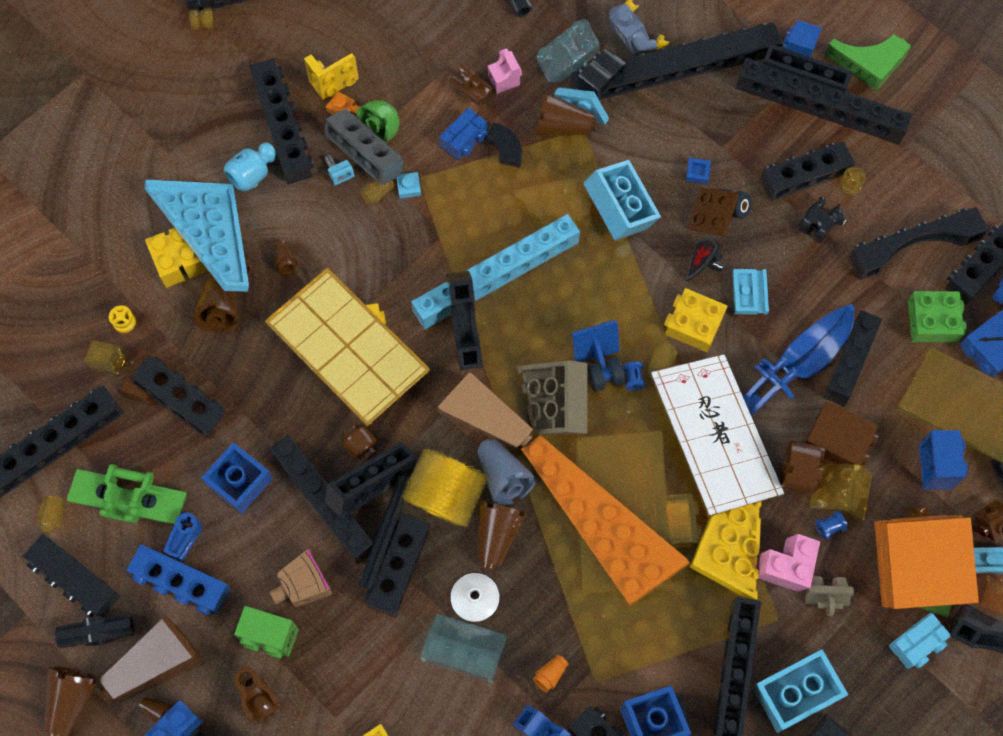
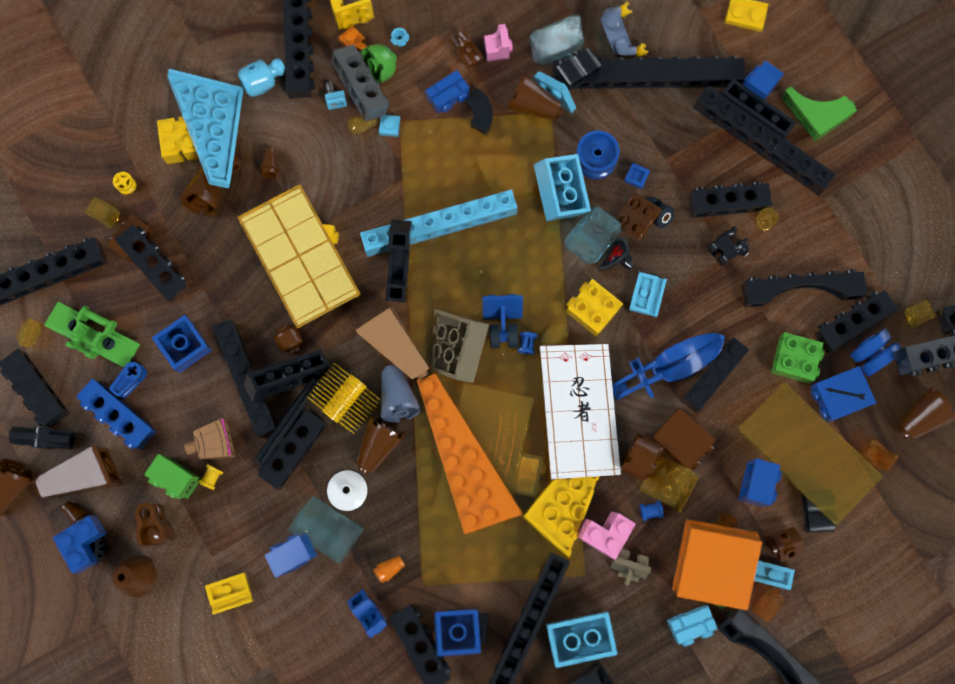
camera: 15 degrees right, 10 degrees up
(310, 623) = (210, 477): none -> yellow bush
(393, 86) = (399, 32): none -> medium azure plate
(434, 683) = (290, 554): none -> brick
(650, 156) = (598, 154): none -> blue wheel
(671, 242) = (593, 235): none -> clear light blue shield

